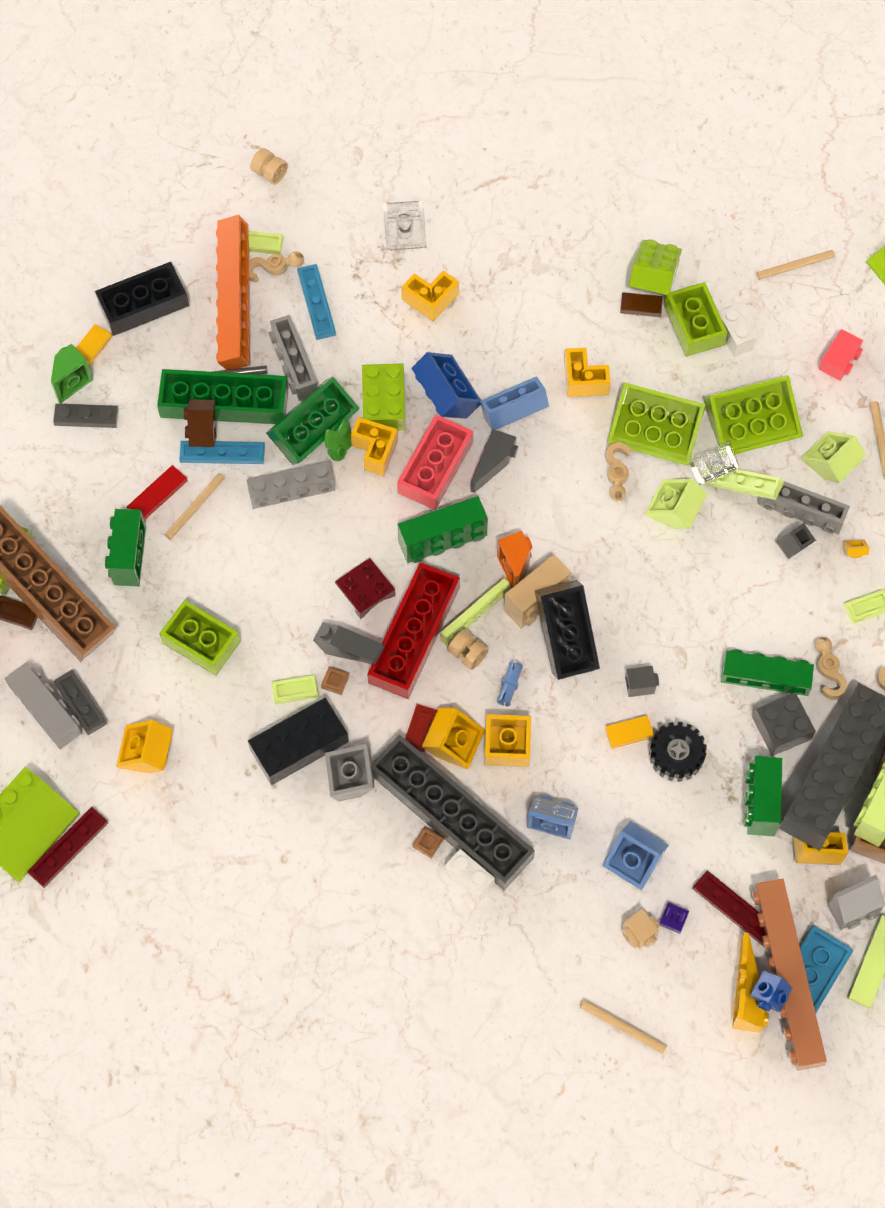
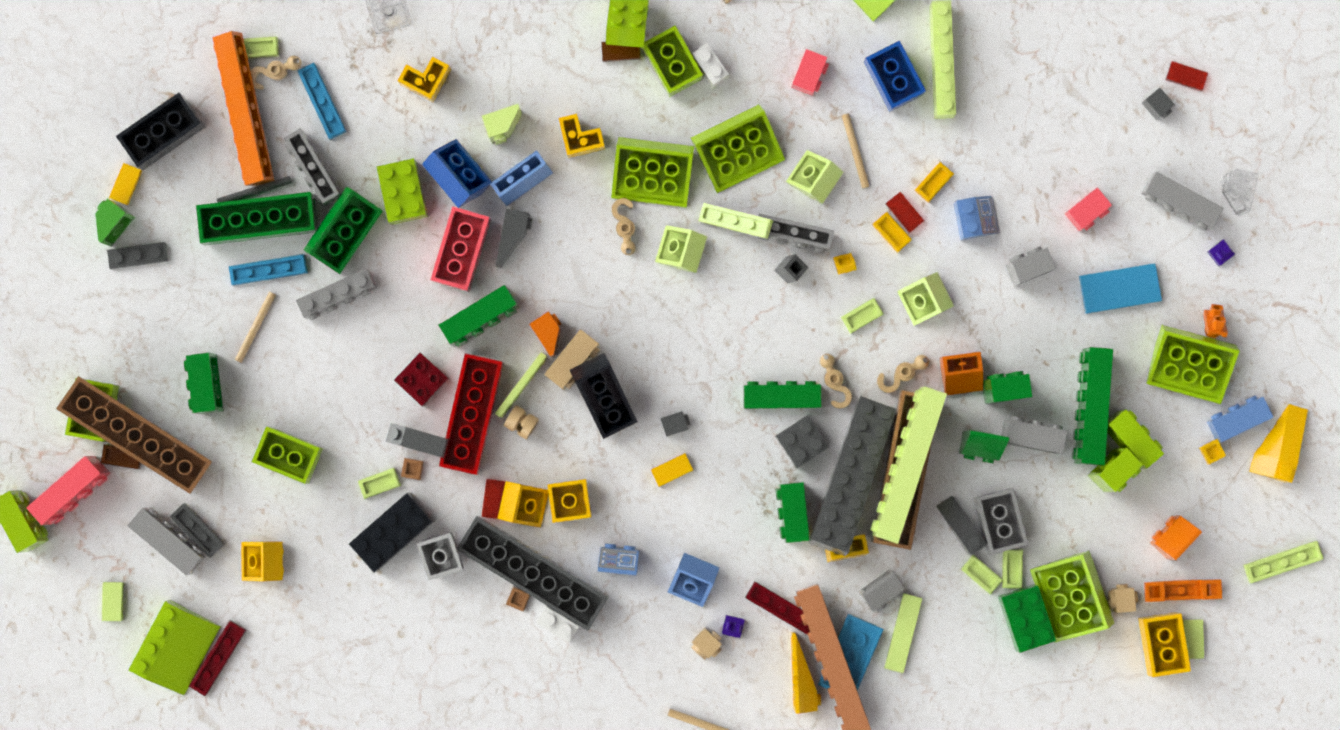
camera: 10 degrees left, 20 degrees up
(158, 492) = (219, 321): red tile -> none
(201, 423) = (243, 252): reddish brown brick -> none
(339, 441) = (370, 247): bright green plate -> none
(377, 441) = (409, 241): yellow brick -> none
(504, 346) = (502, 123): none -> yellowish green slope
(509, 684) = (562, 446): medium blue pin -> none
(680, 741) = (715, 482): black wheel -> none
(714, 463) = (708, 207): clear slope -> none
(771, 992) = (819, 686): blue brick -> none

